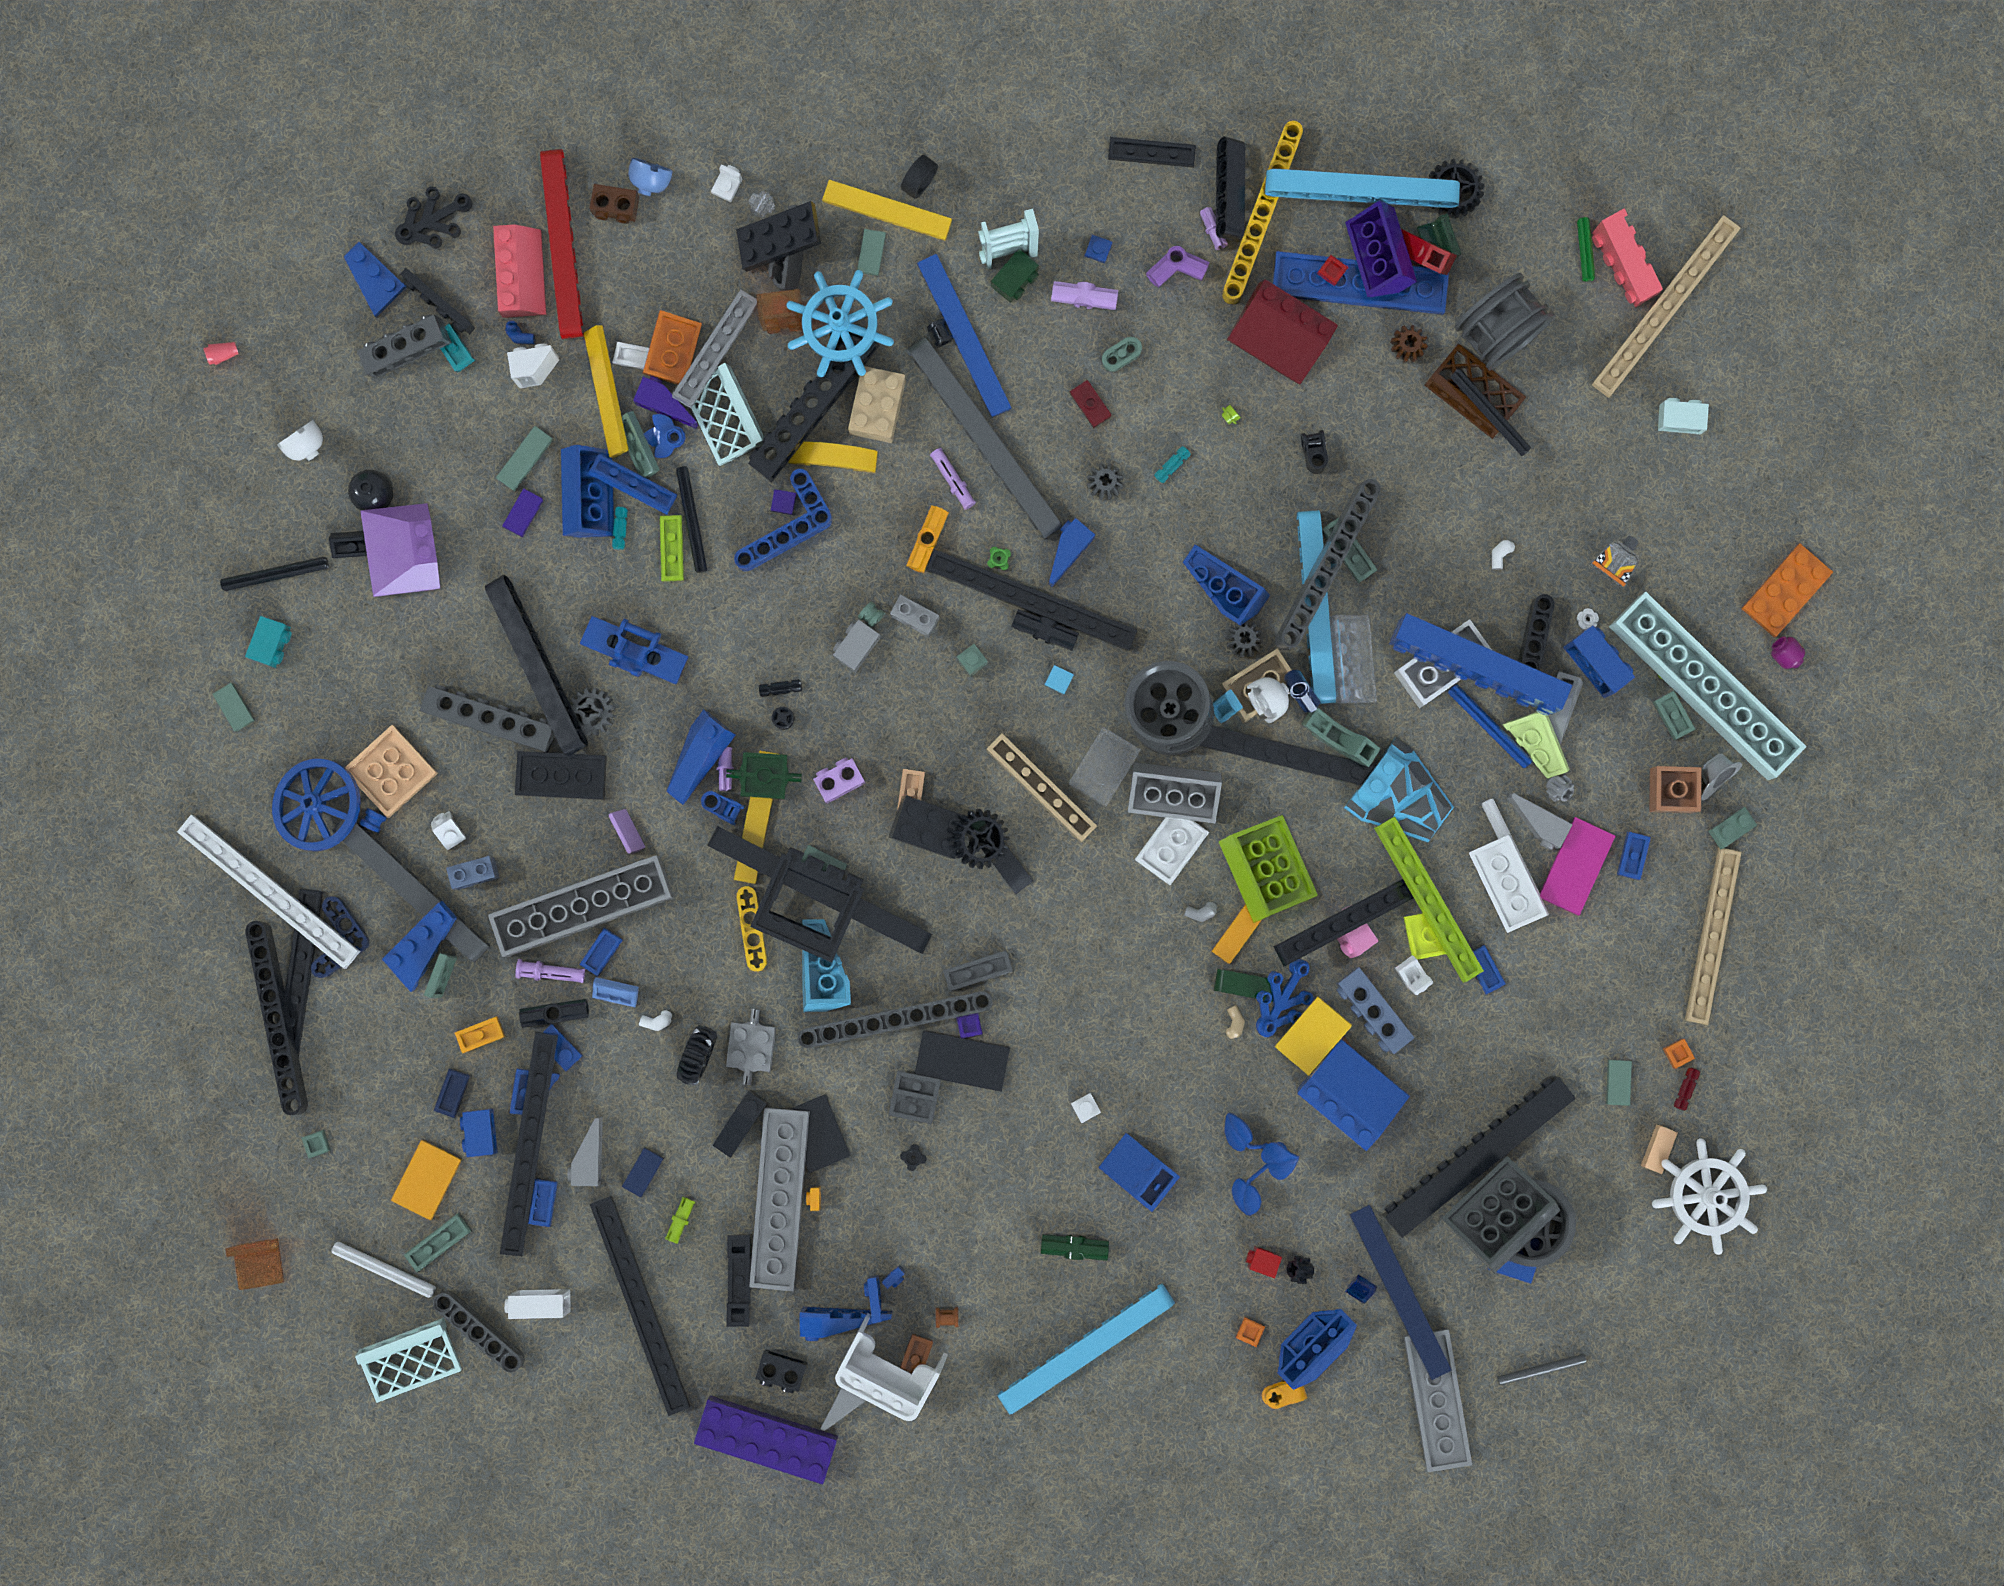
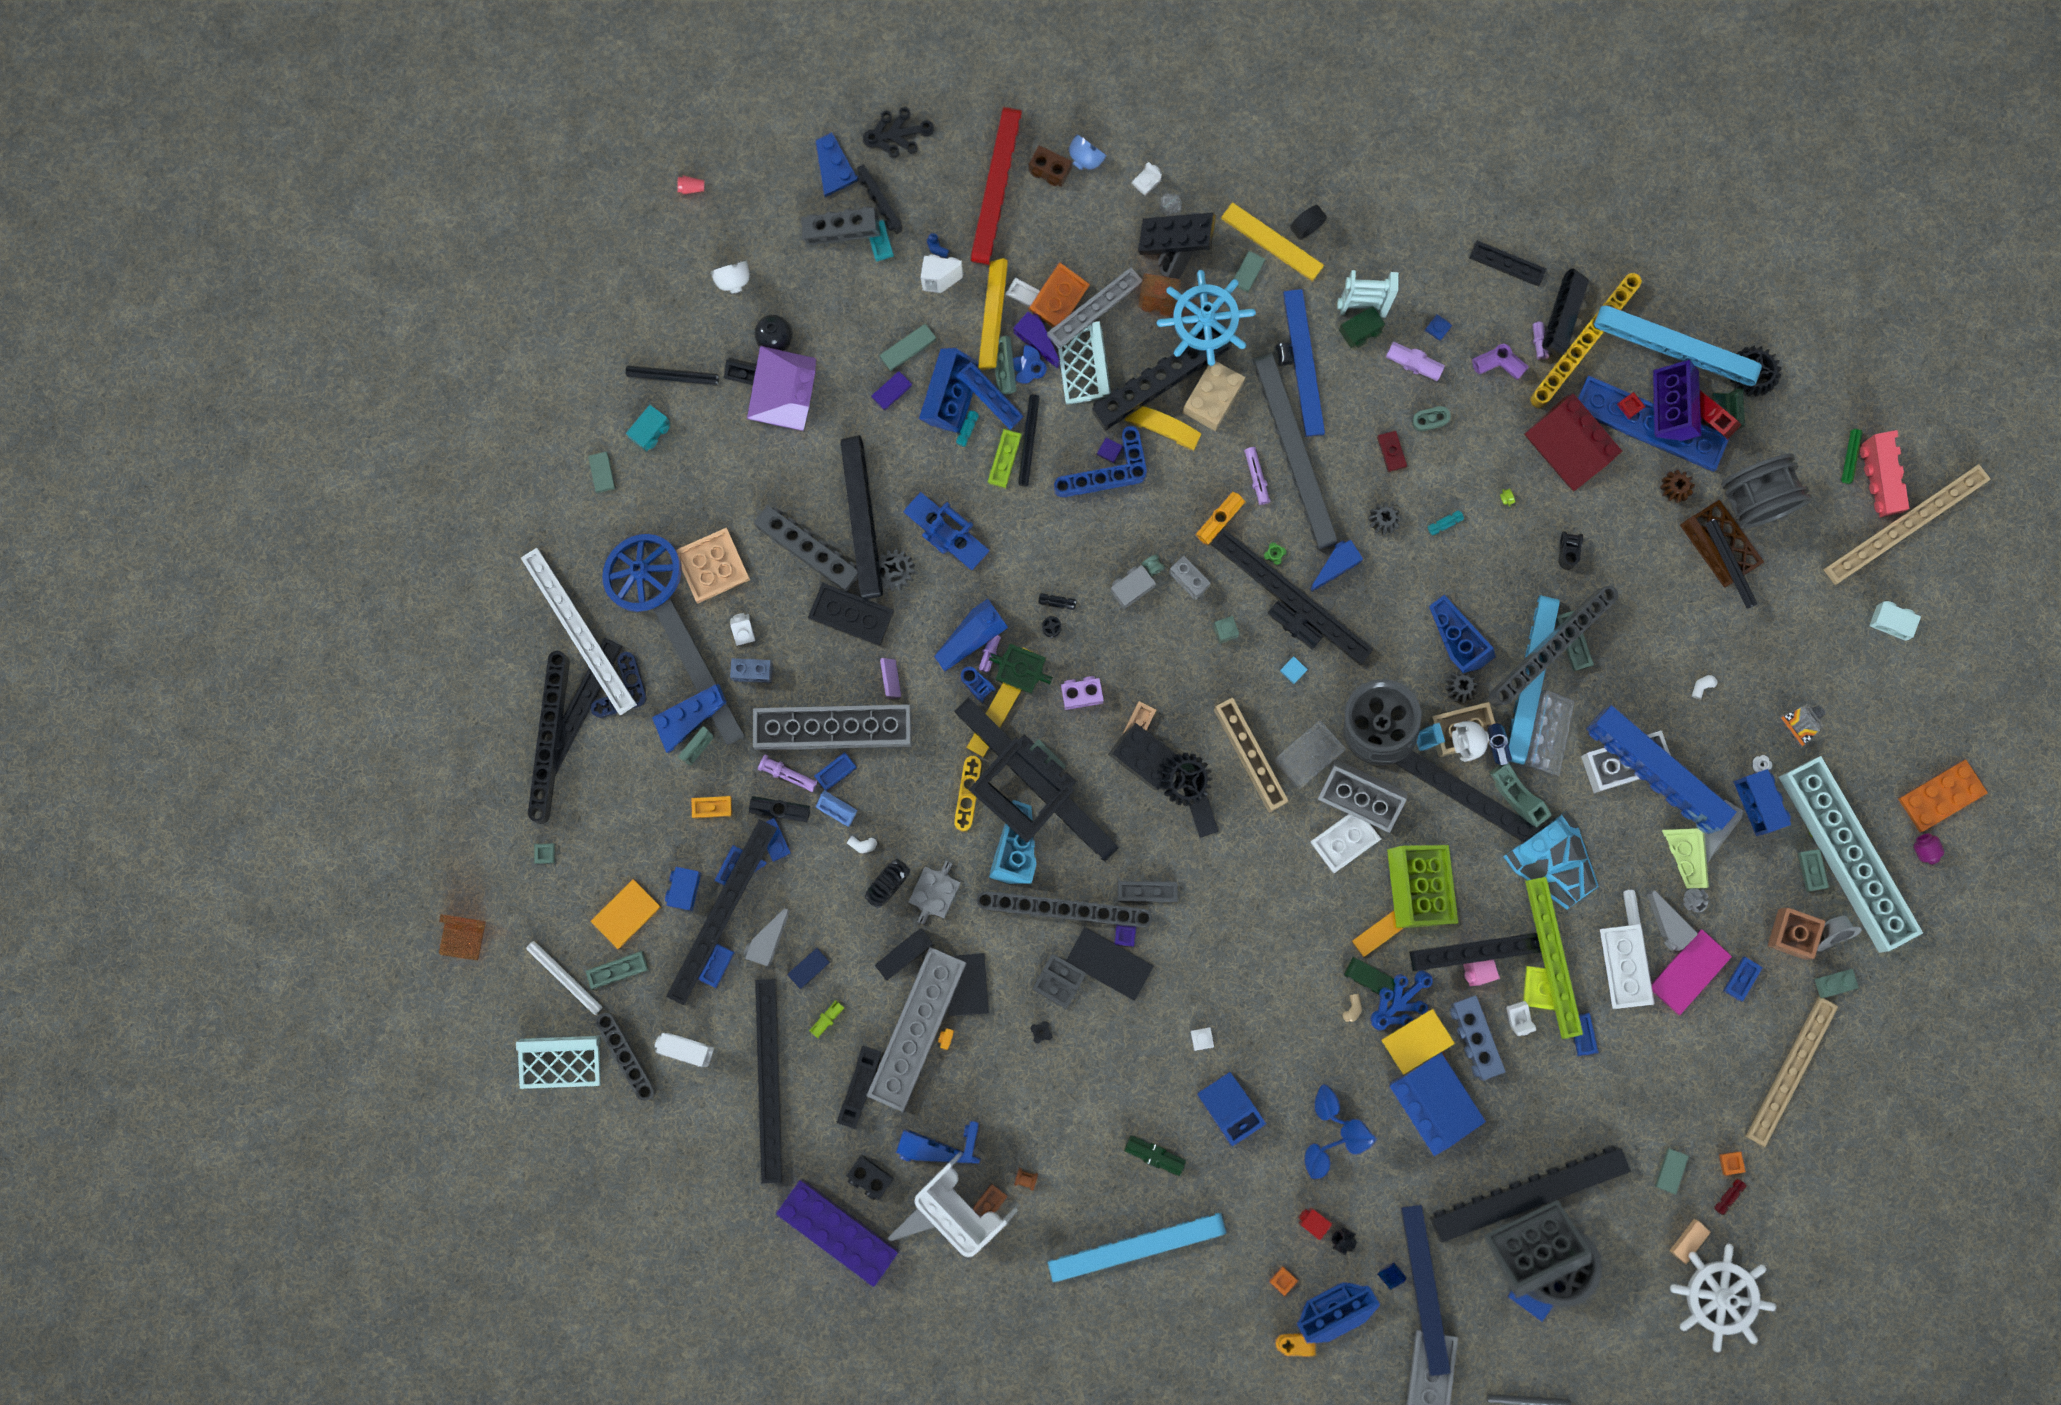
camera: 20 degrees right, 5 degrees down
(372, 820) = (684, 600): blue wheel -> none
(452, 1093) = (671, 848): dark blue tile -> none
(519, 271) = (954, 196): coral slope -> none
(894, 1278) = (992, 1130): blue plate -> none
(1202, 914) = (1355, 906): light grey arm -> none
(1490, 726) = (1650, 828): blue axle -> none
(1531, 635) = (1711, 763): black beam -> none

